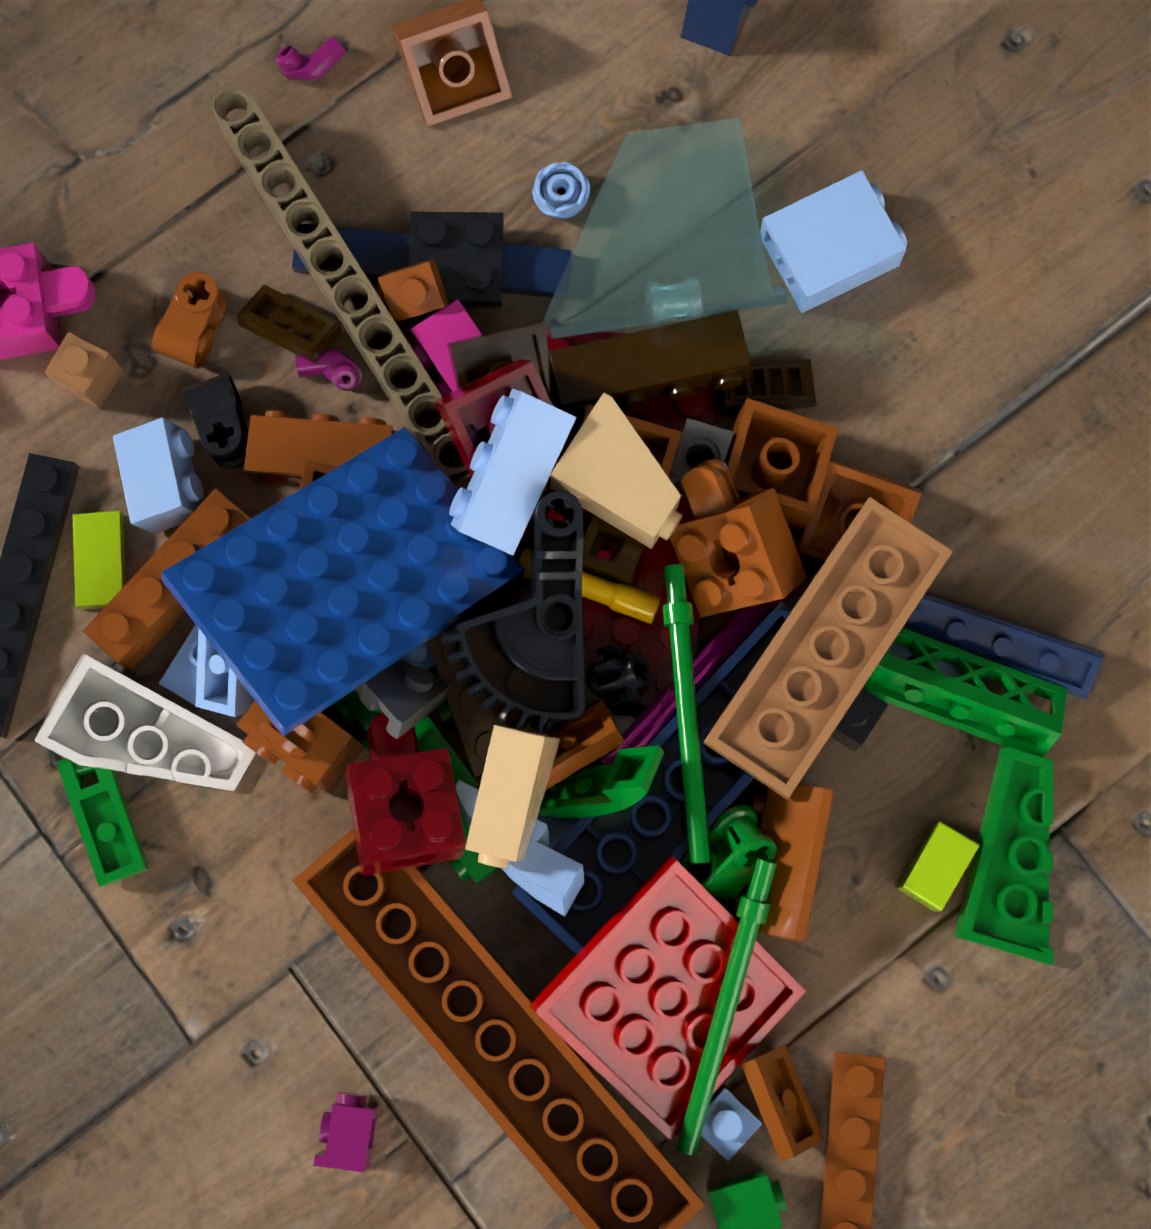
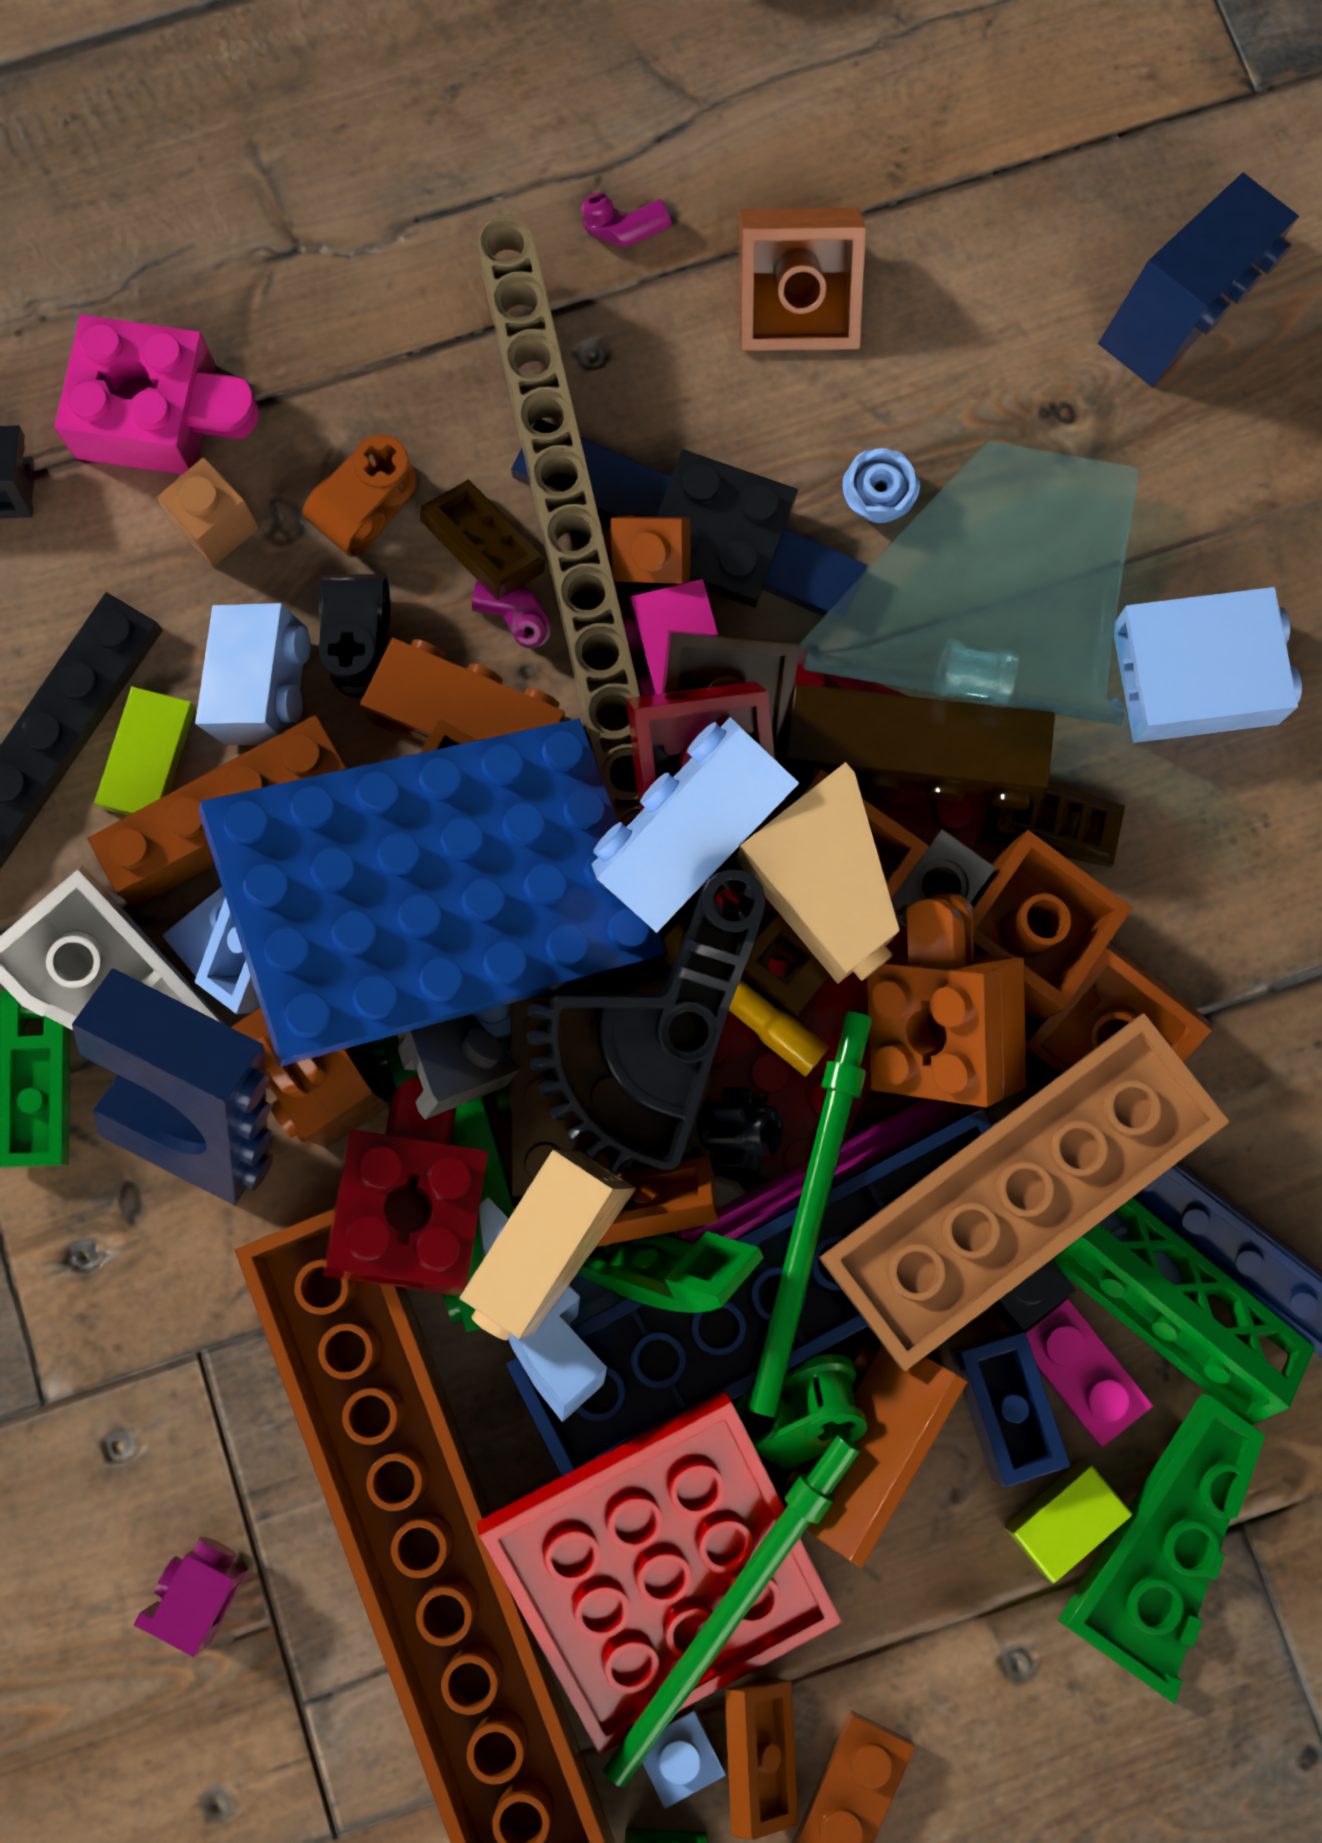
camera: 15 degrees right, 0 degrees up
(219, 779) = (183, 1087): none -> dark blue arch
(871, 802) = (1009, 1408): none -> dark blue brick
(914, 763) = (1085, 1374): none -> dark pink plate

